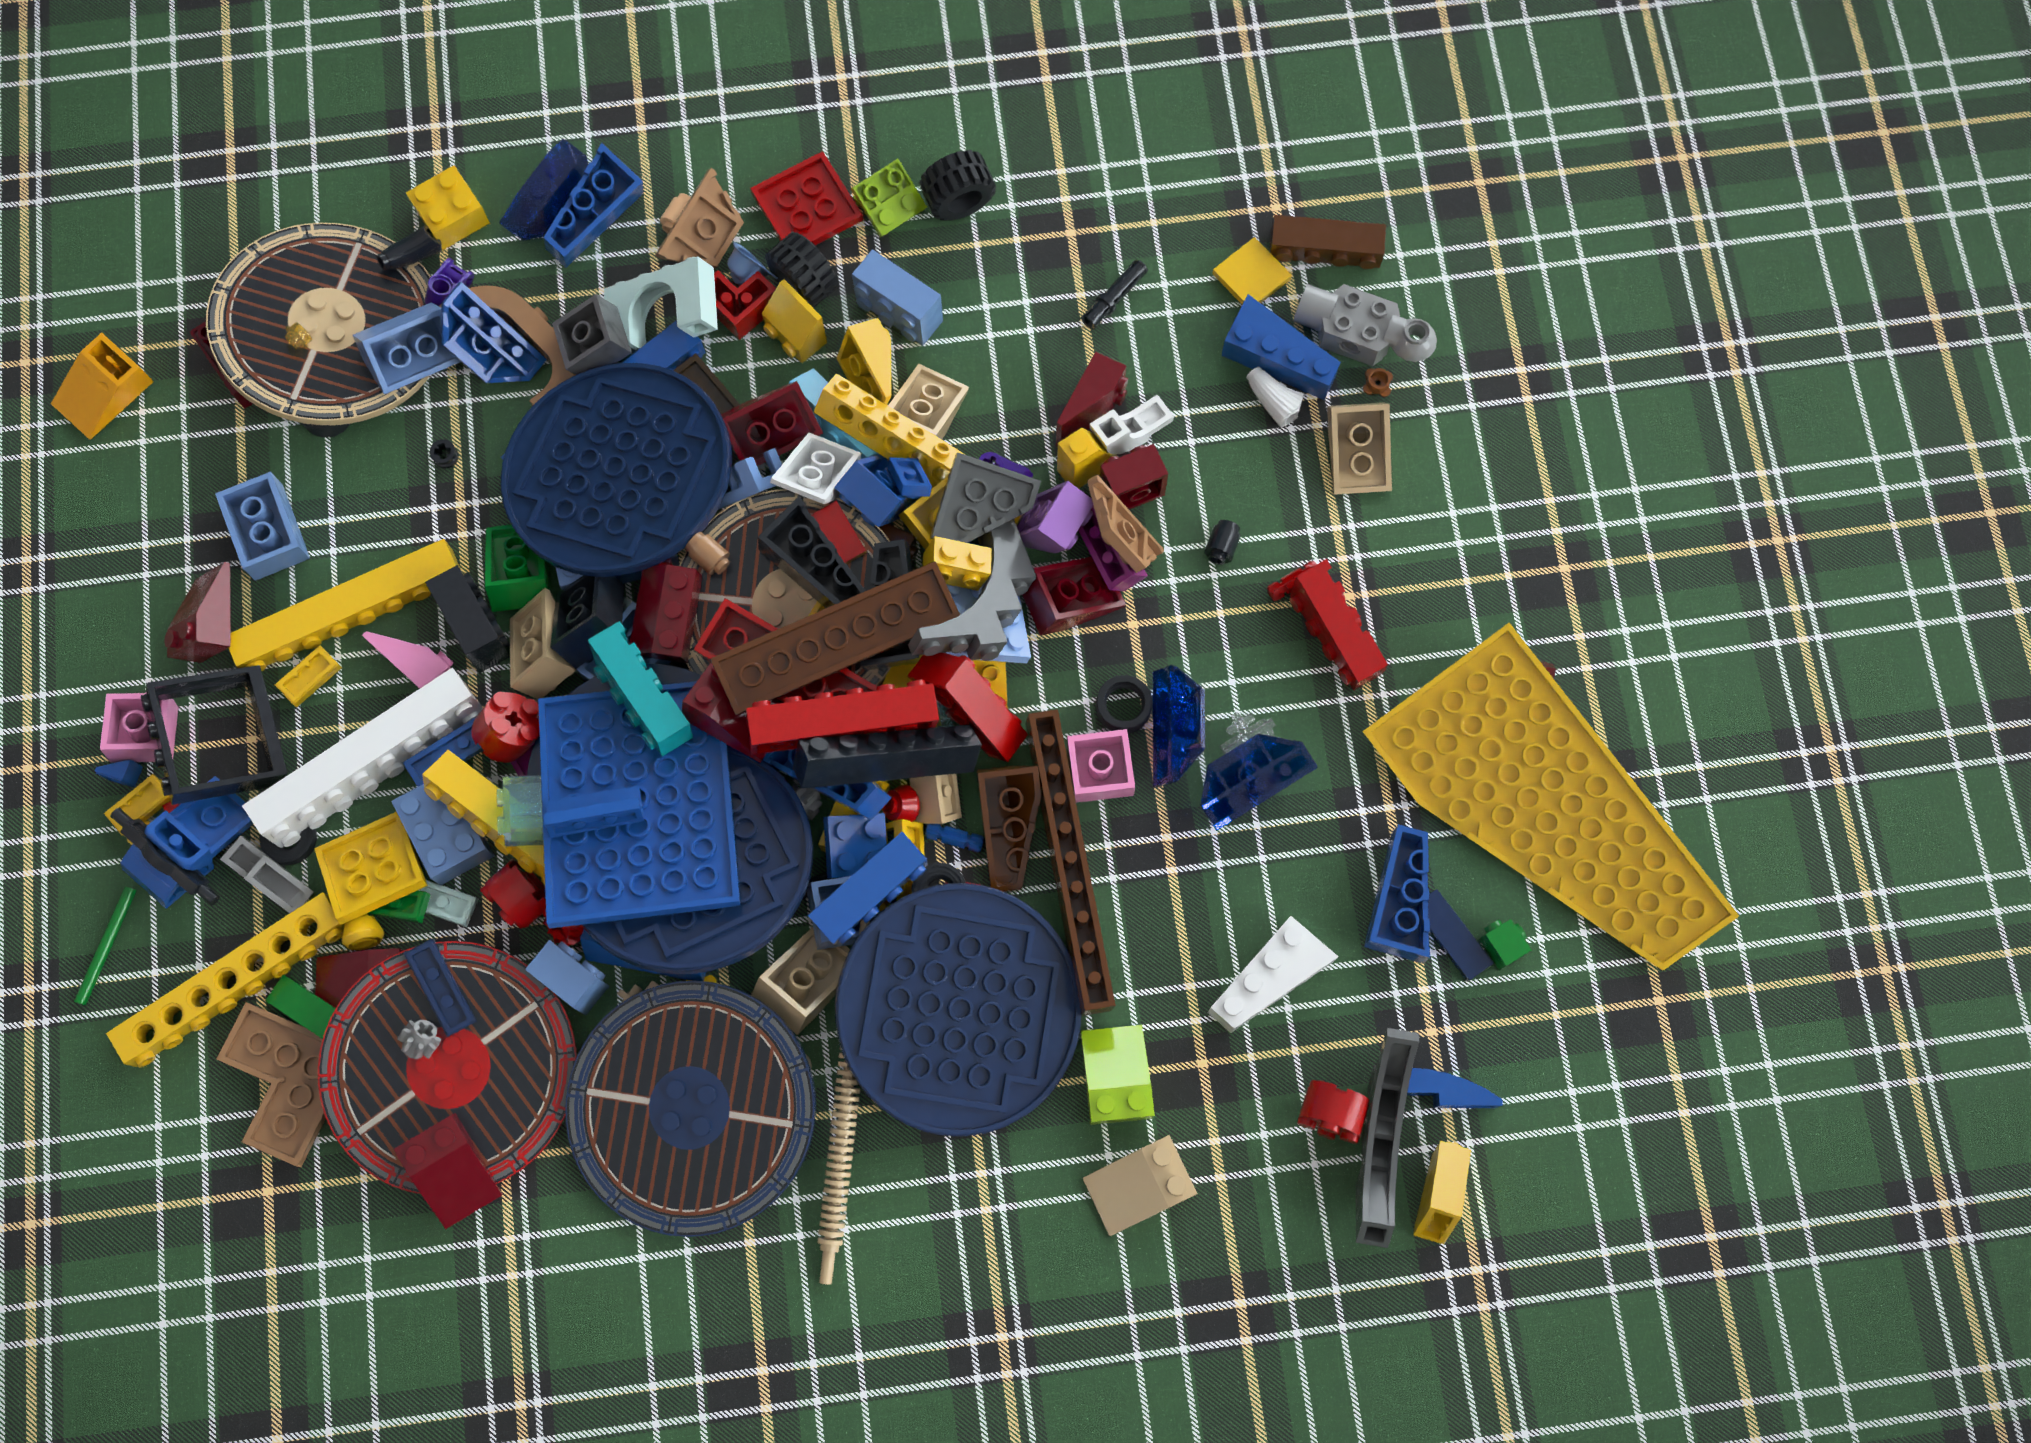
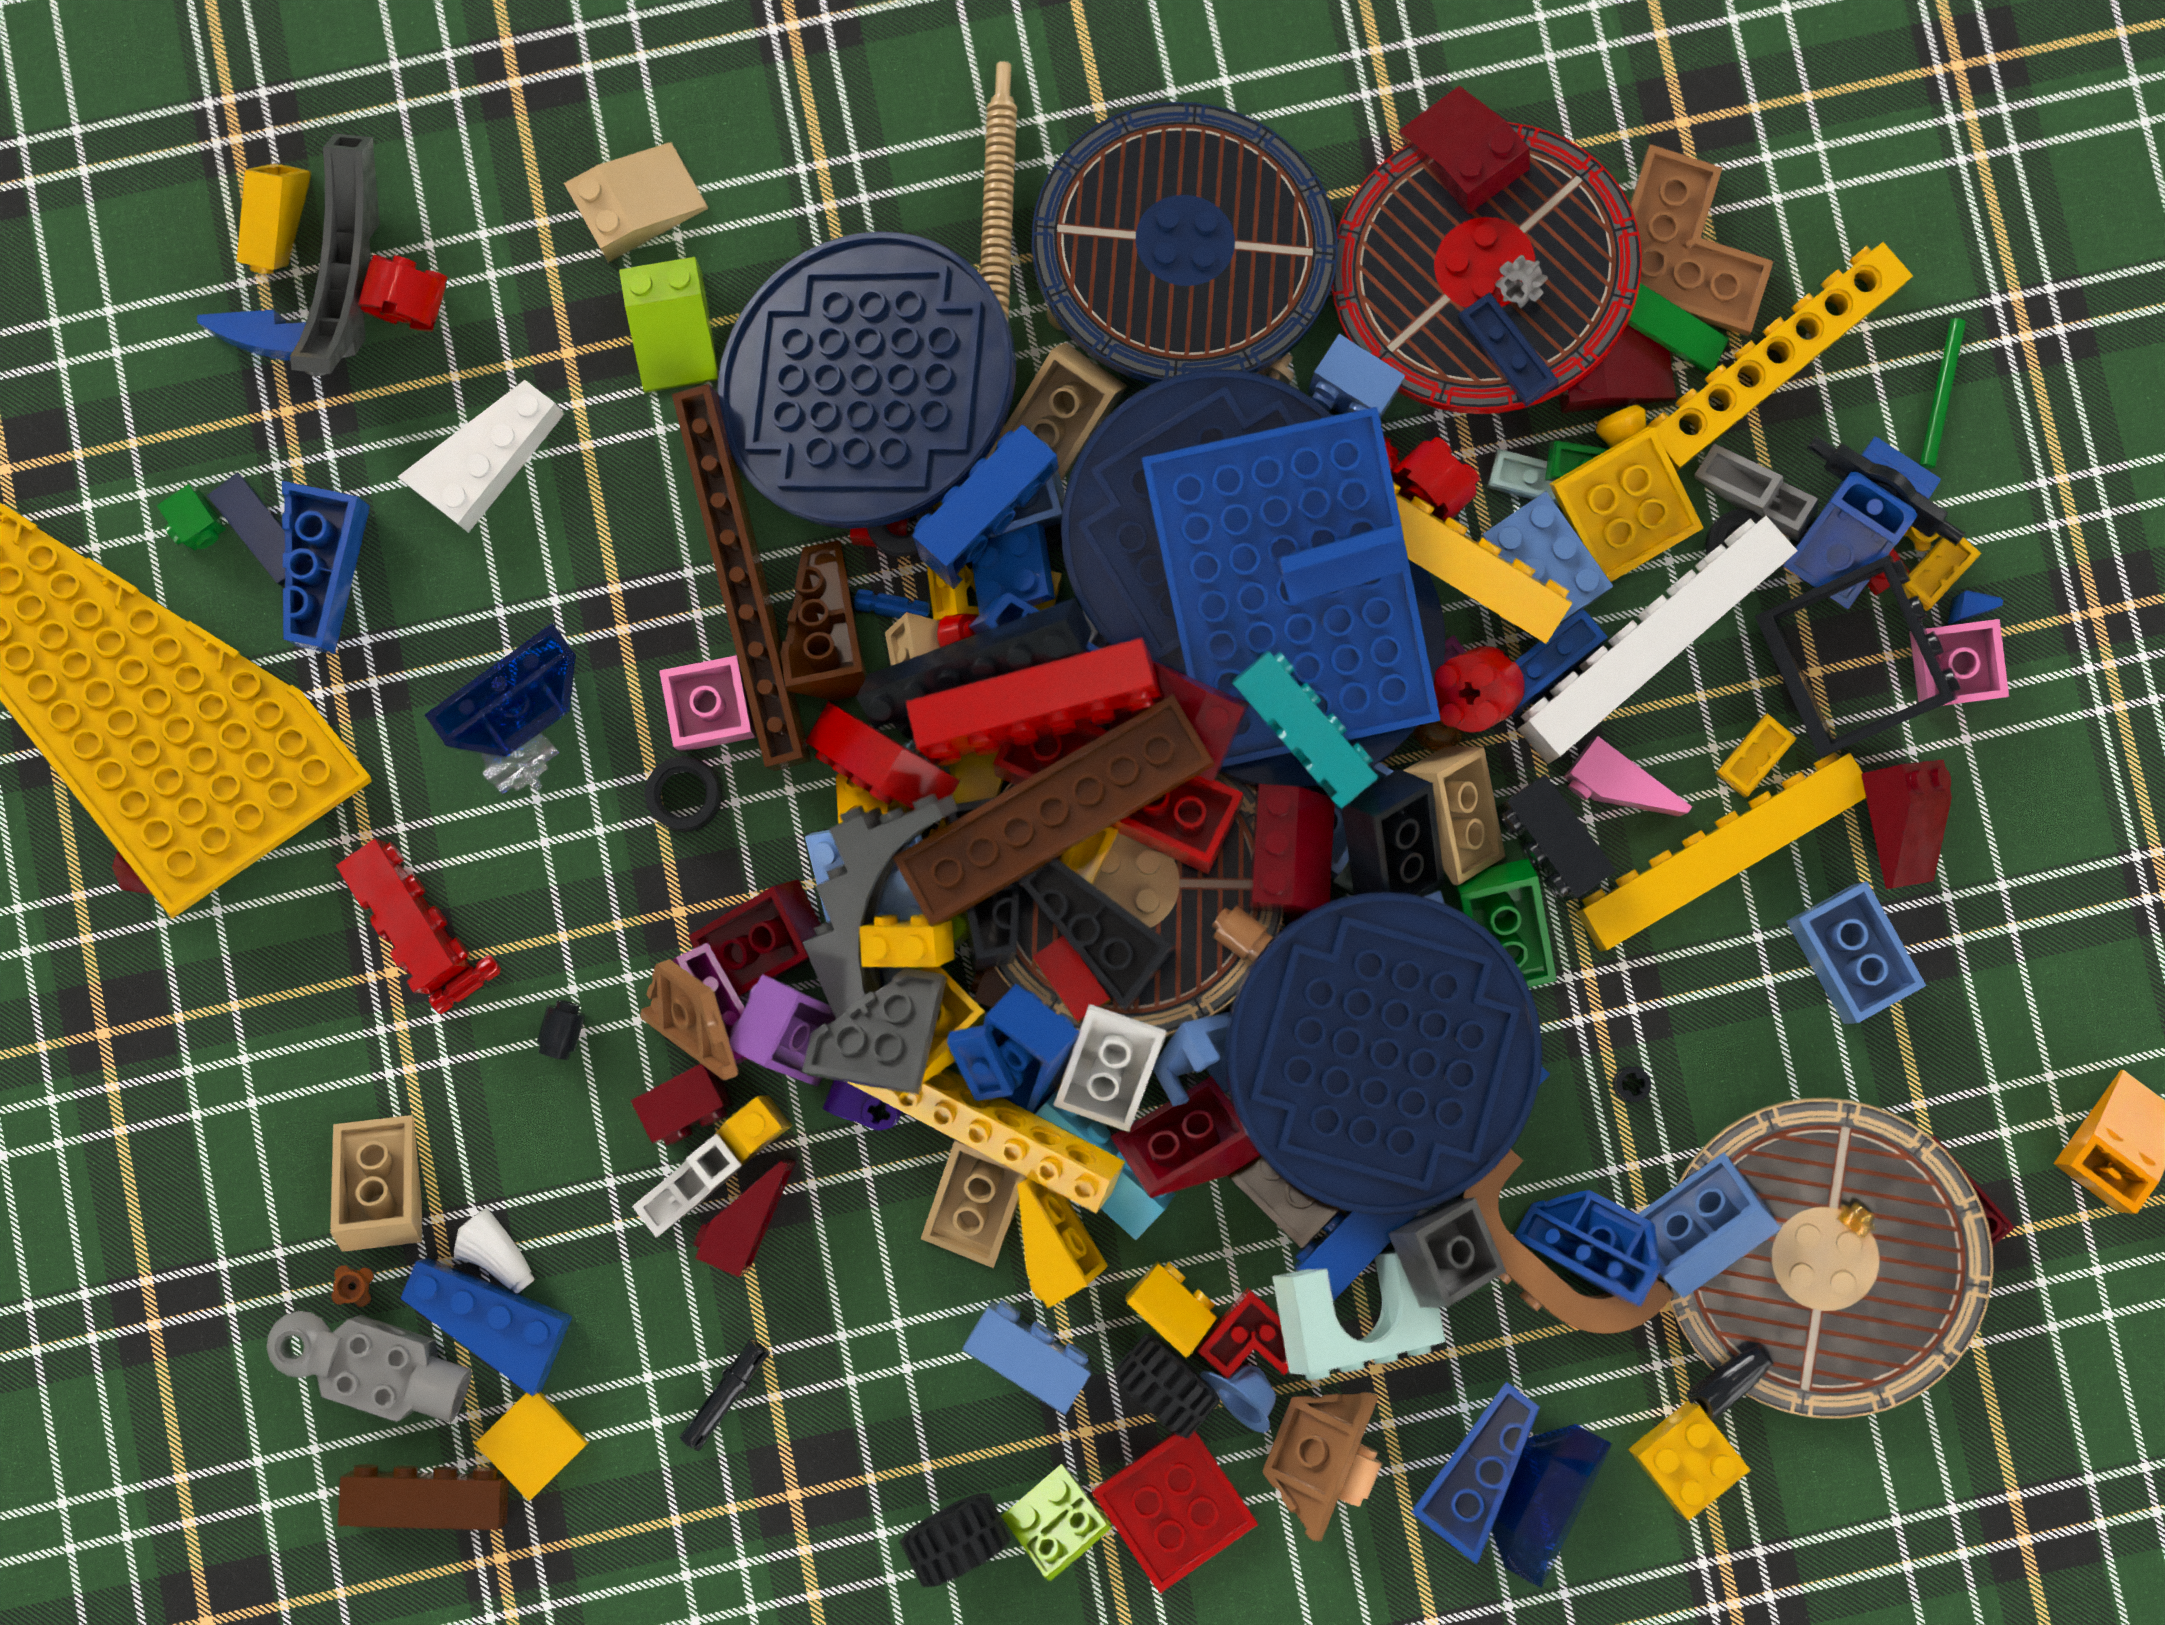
camera: 175 degrees right, 10 degrees up
(445, 280) = (1665, 1340): dark purple piece -> none
(522, 810) = (1436, 562): clear light blue brick -> none
(1176, 724) = (609, 759): clear blue wedge -> none

